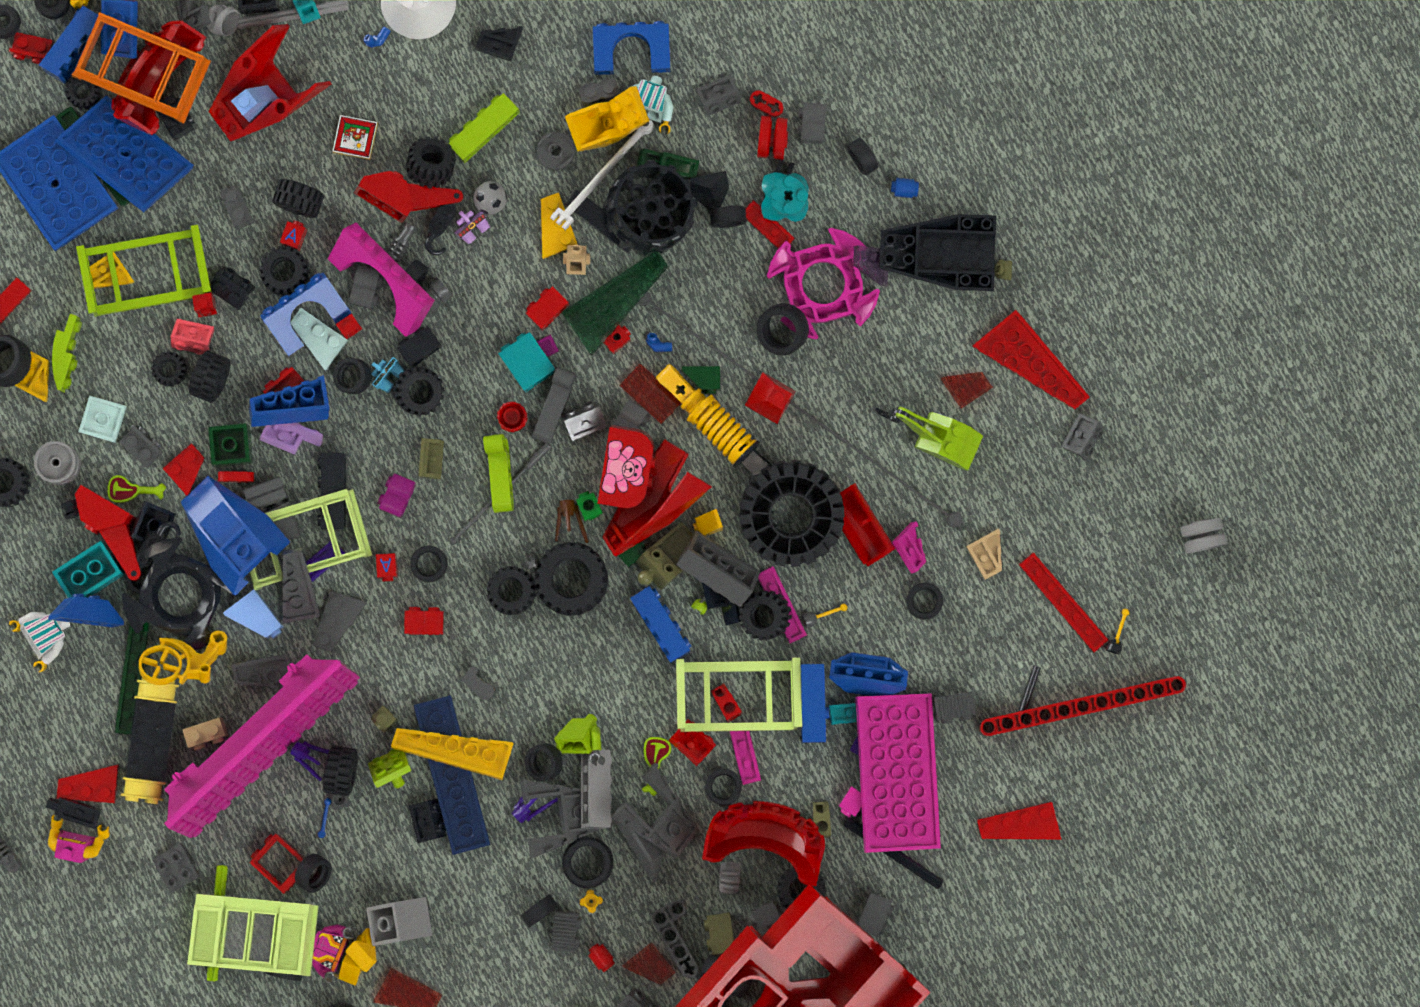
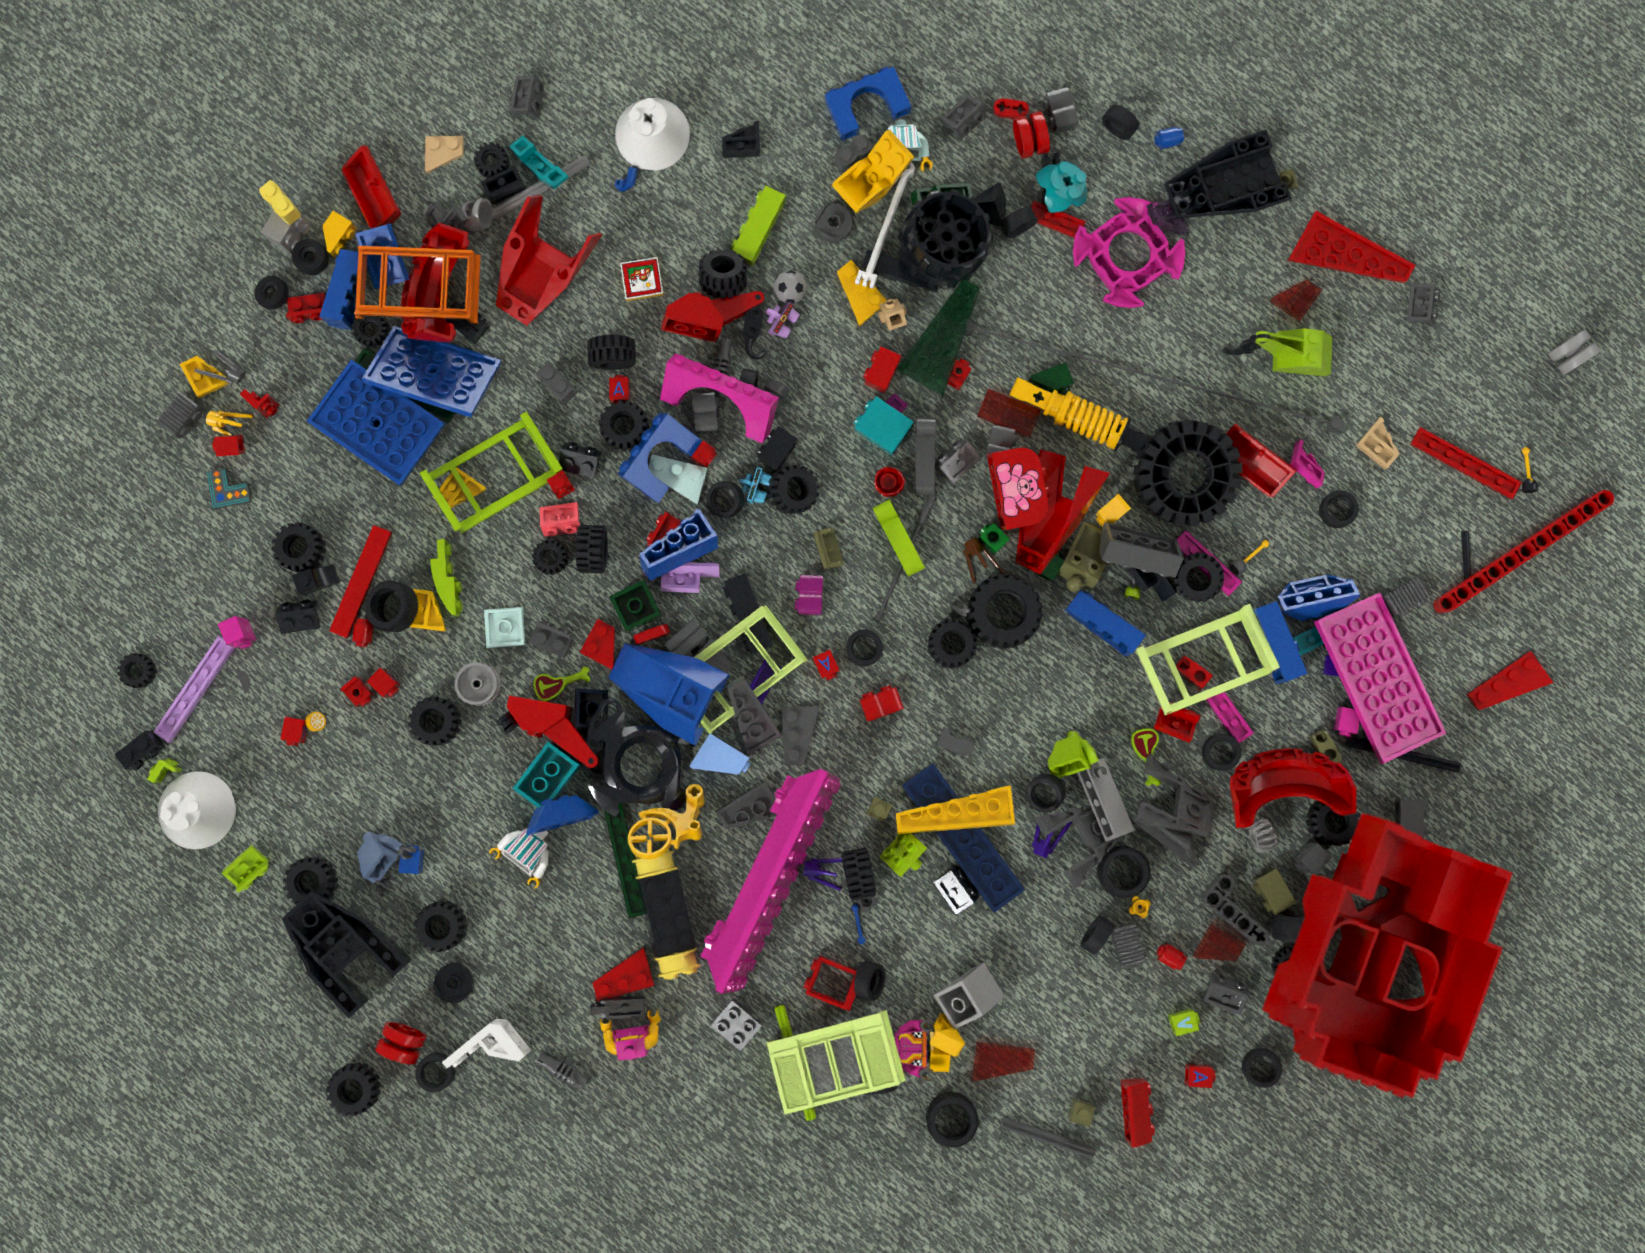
camera: 20 degrees left, 0 degrees up
(204, 733) = (719, 883): tan brick -> none
(254, 101) = (534, 278): light blue slope -> none
(656, 345) = (997, 366): blue arm -> none
(770, 398) = (1122, 375): red slope -> none
(797, 318) = (1115, 326): black tyre -> none

